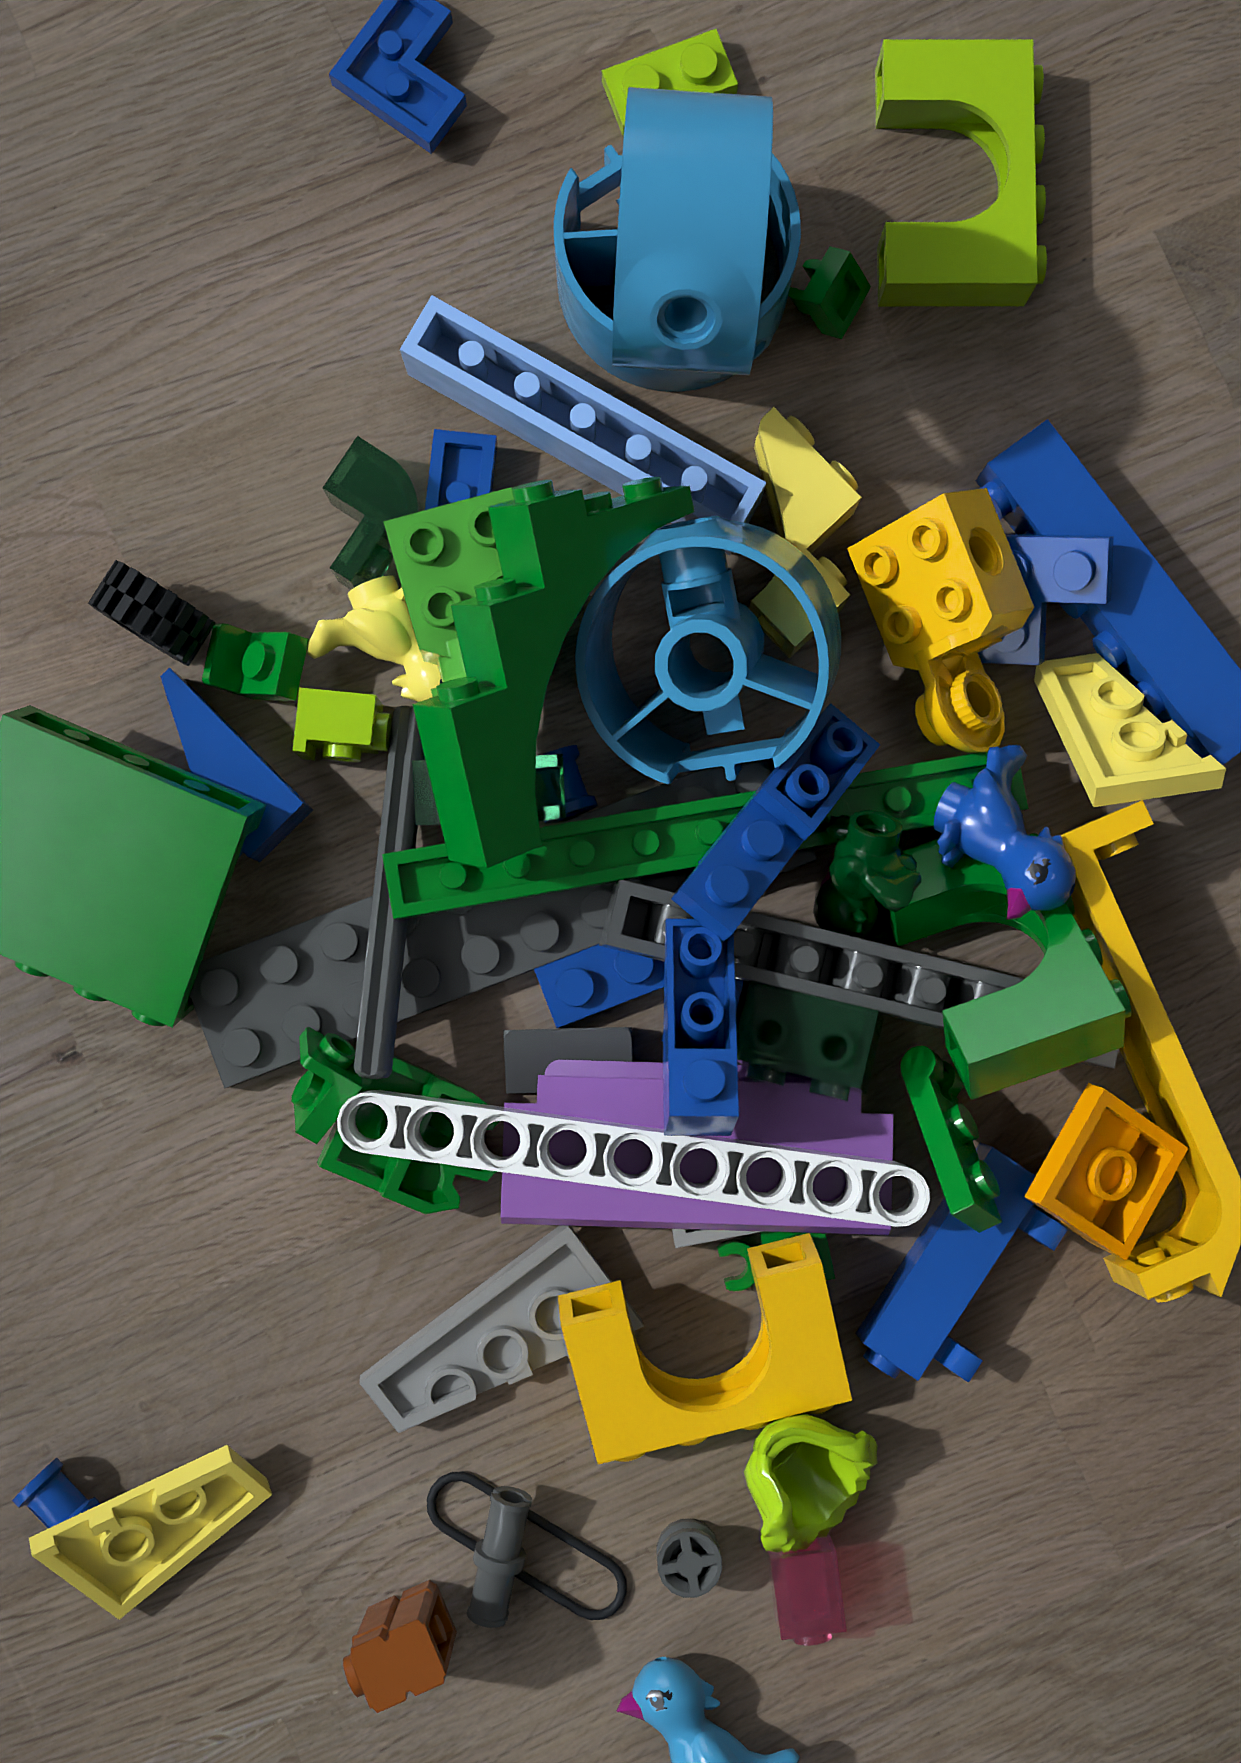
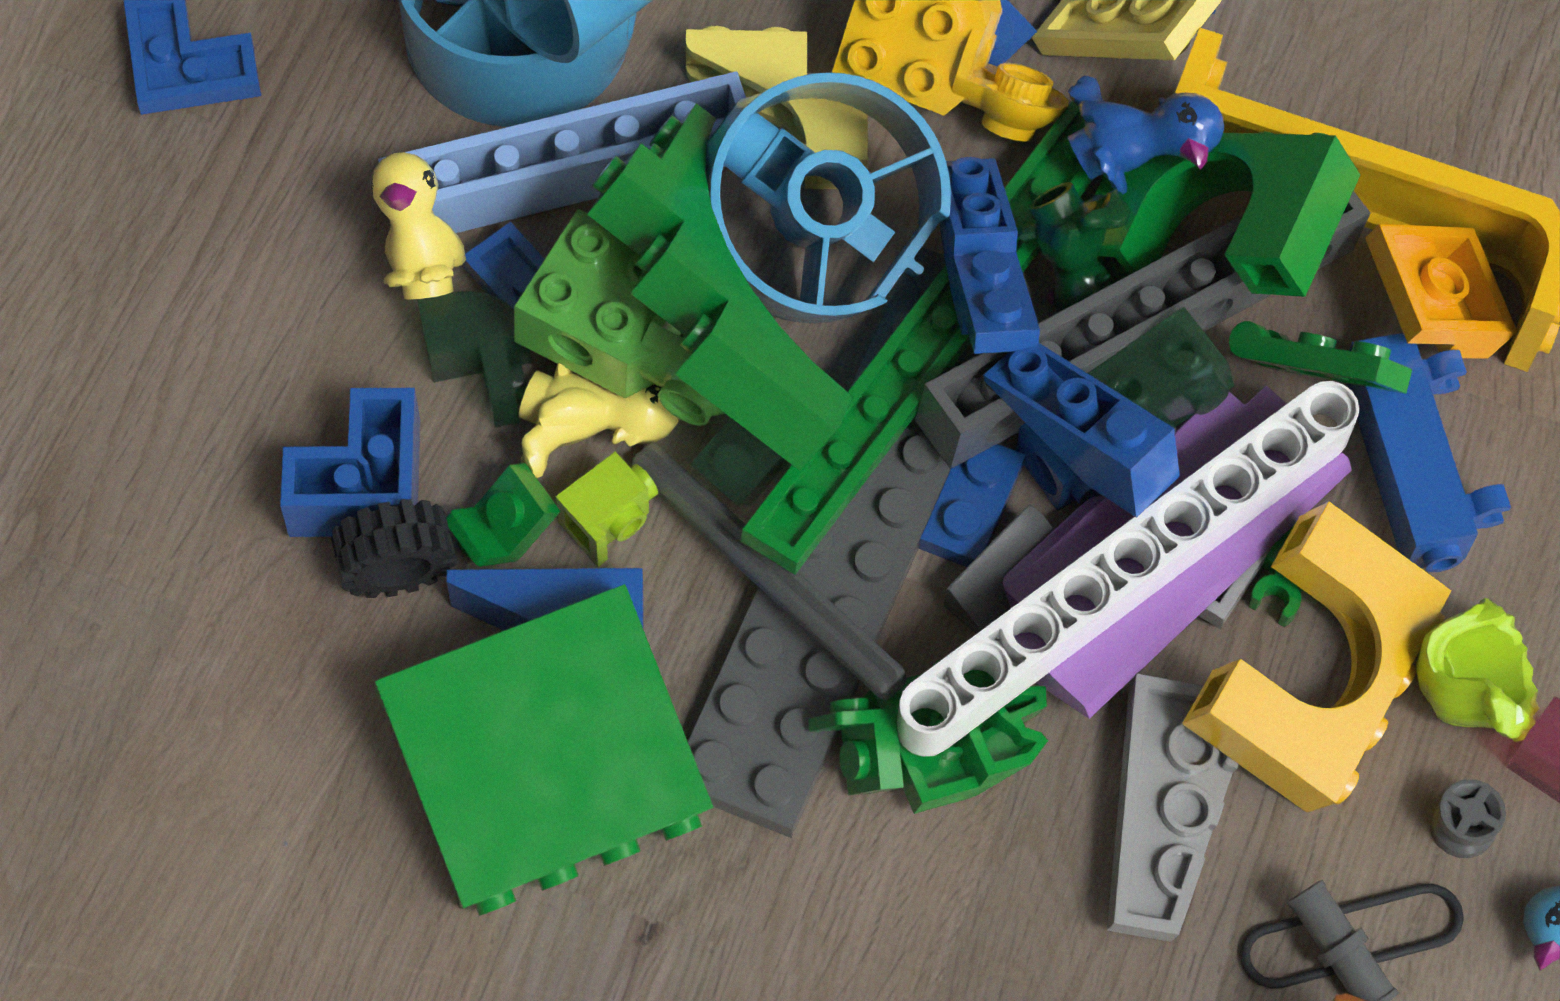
camera: 45 degrees left, 20 degrees down
(197, 544) = (376, 467): none -> blue brick
(394, 396) = (419, 243): none -> light yellow animal

